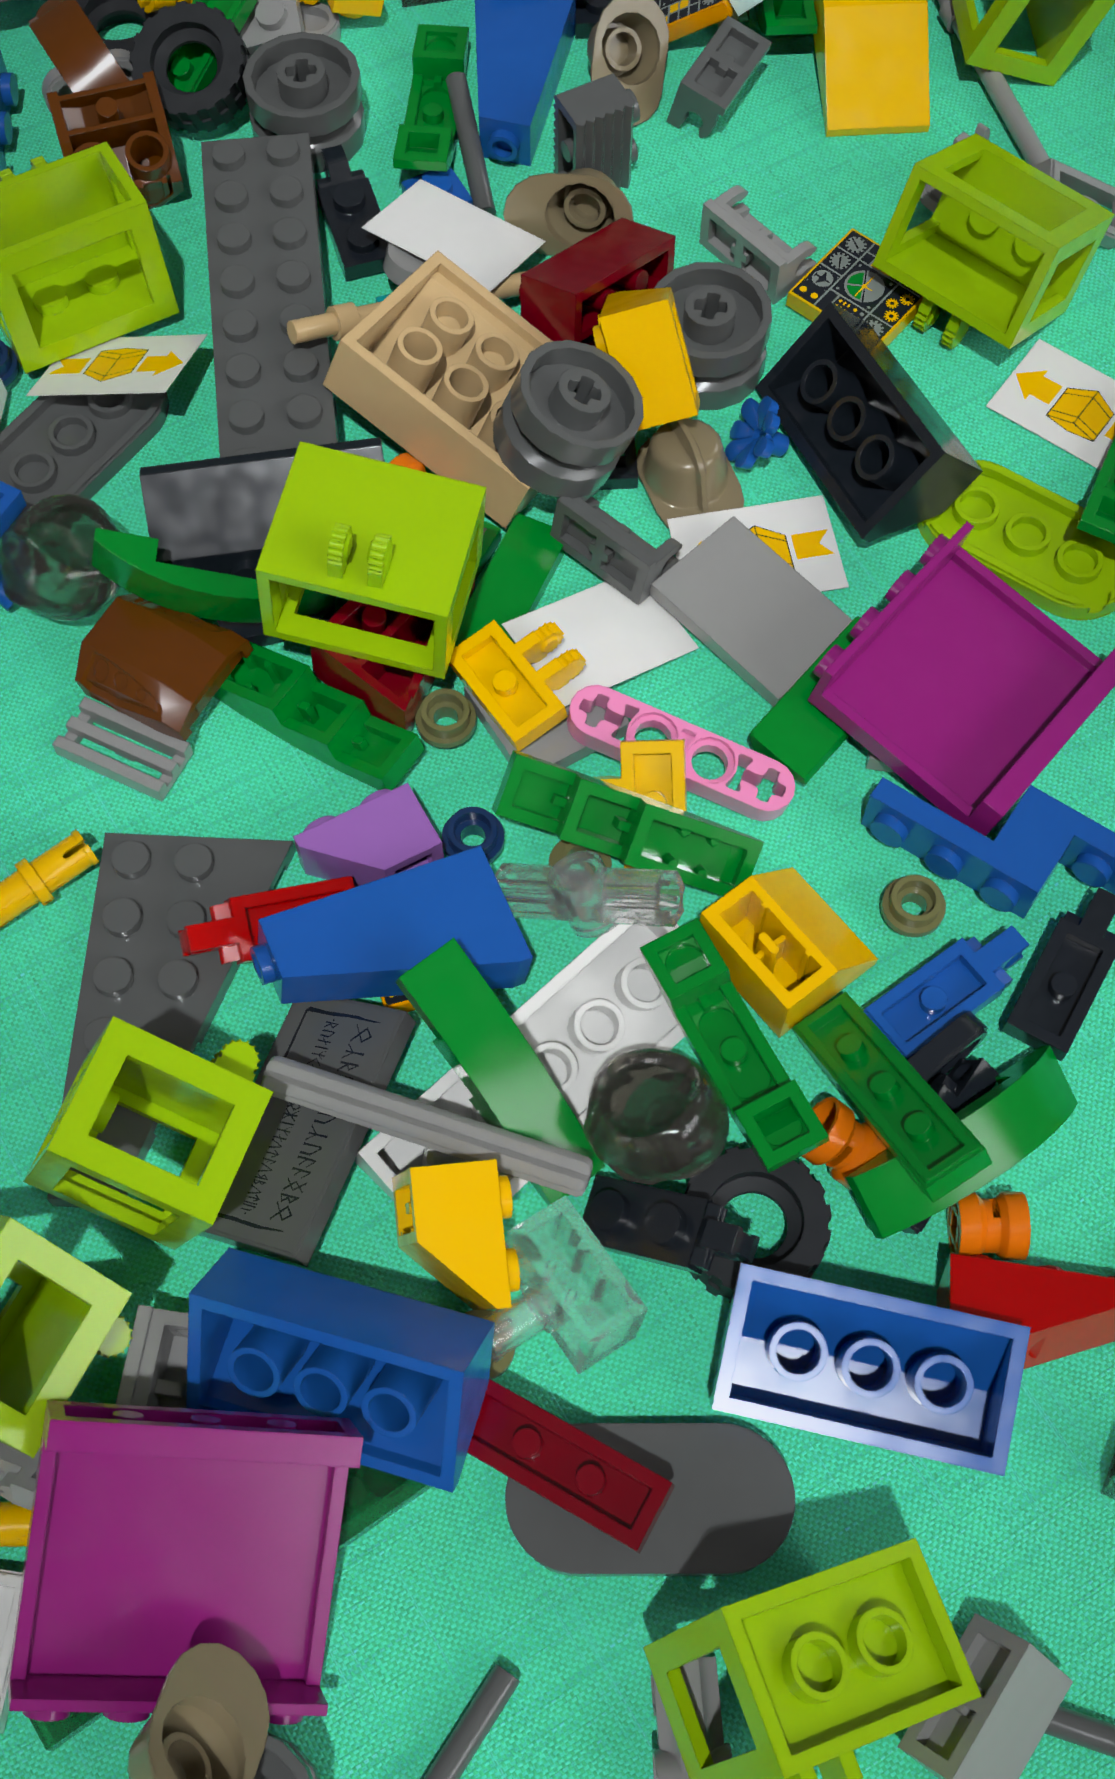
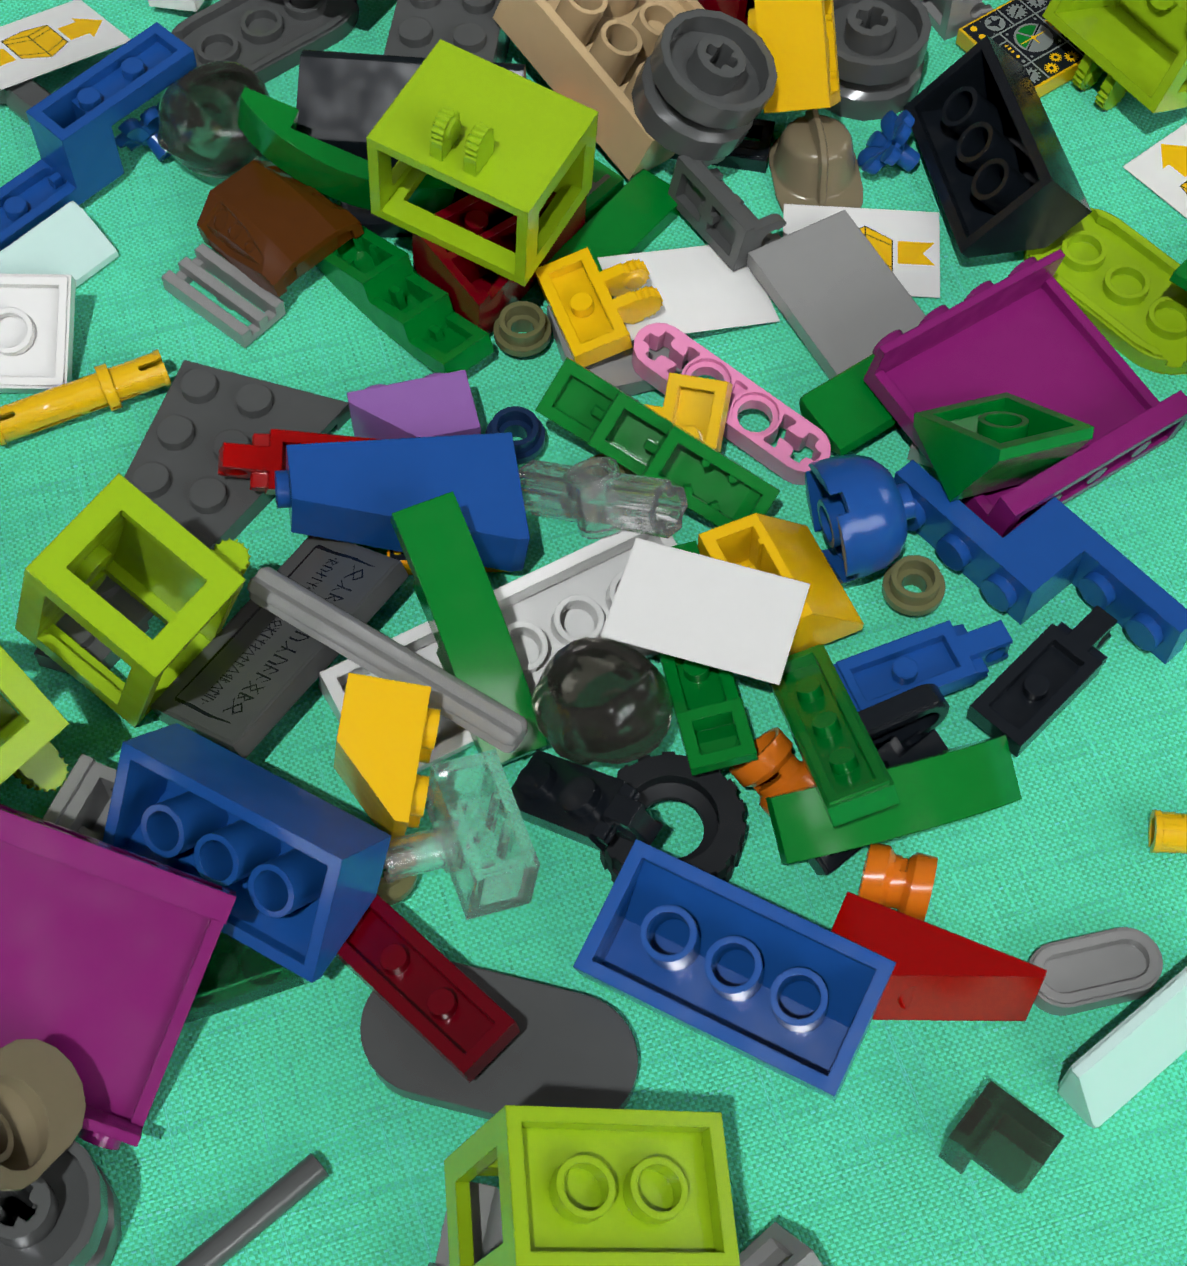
camera: 15 degrees right, 5 degrees down
(733, 995) = (706, 611): none -> white sticker
(848, 849) = (859, 513): none -> blue cylinder
(960, 740) = (996, 442): none -> green slope

